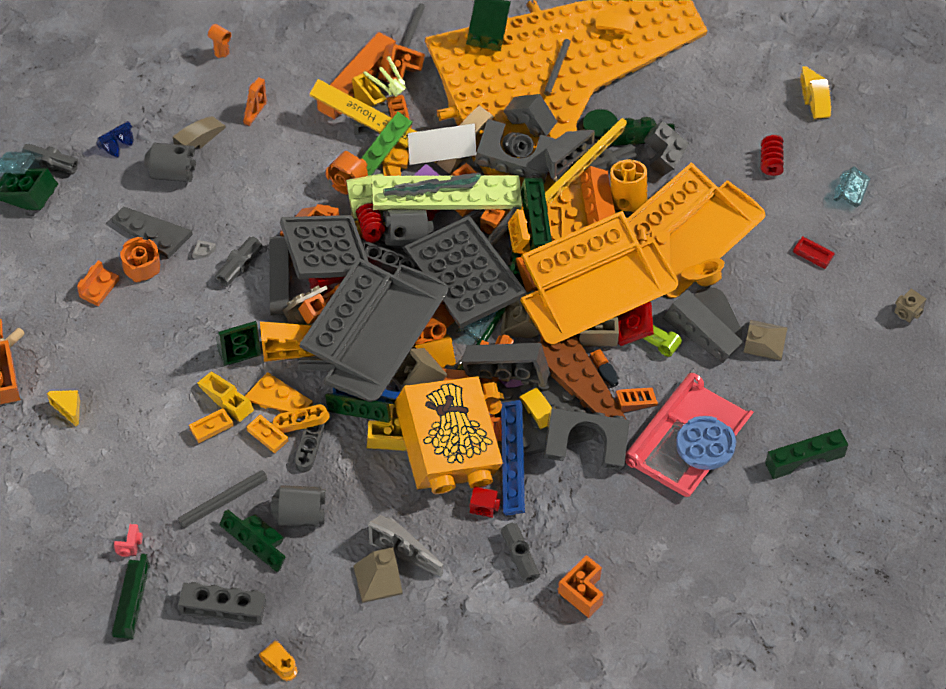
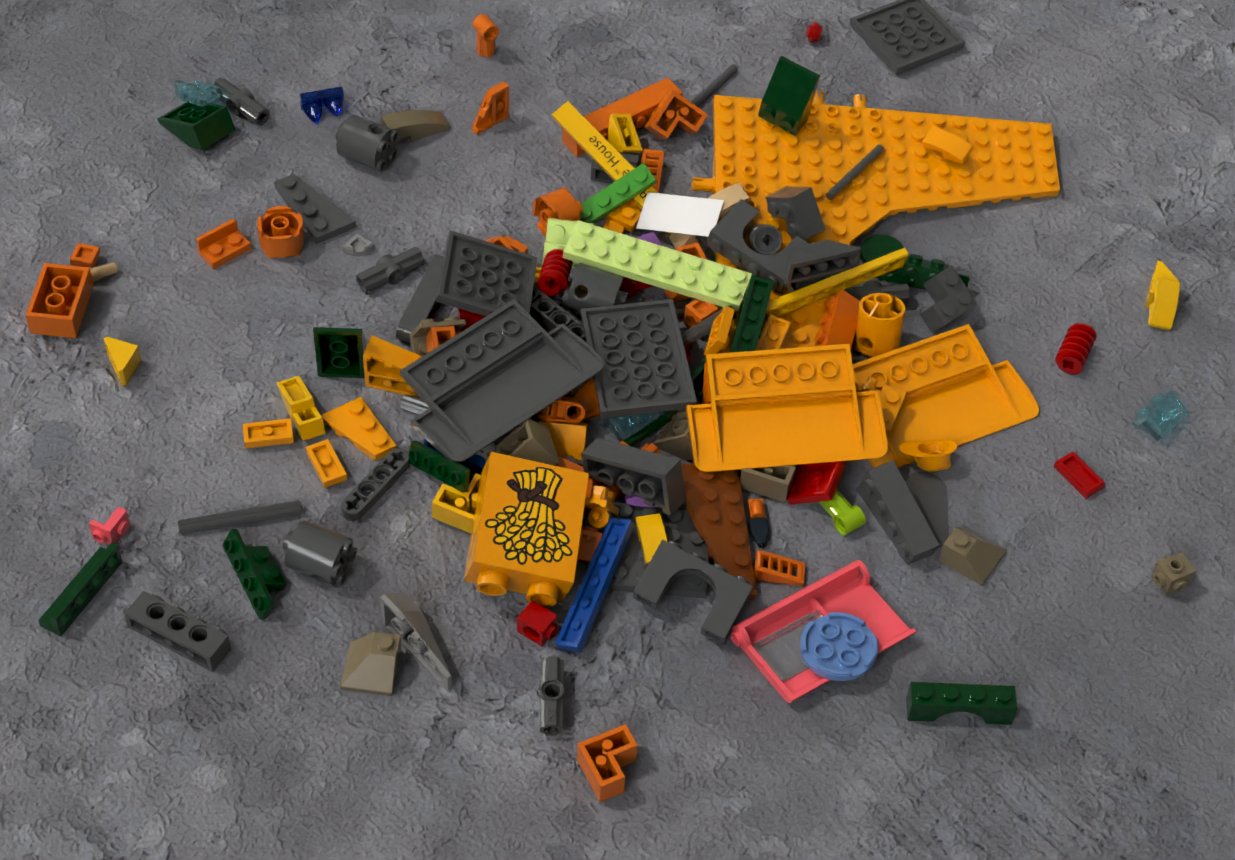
camera: 20 degrees right, 5 degrees down
(279, 661) = (209, 719): light orange piece -> none
(312, 418) = (386, 459): light orange beam -> none
(396, 86) = (657, 138): yellowish green plant -> none
(433, 185) = (642, 251): dark grey sword -> none

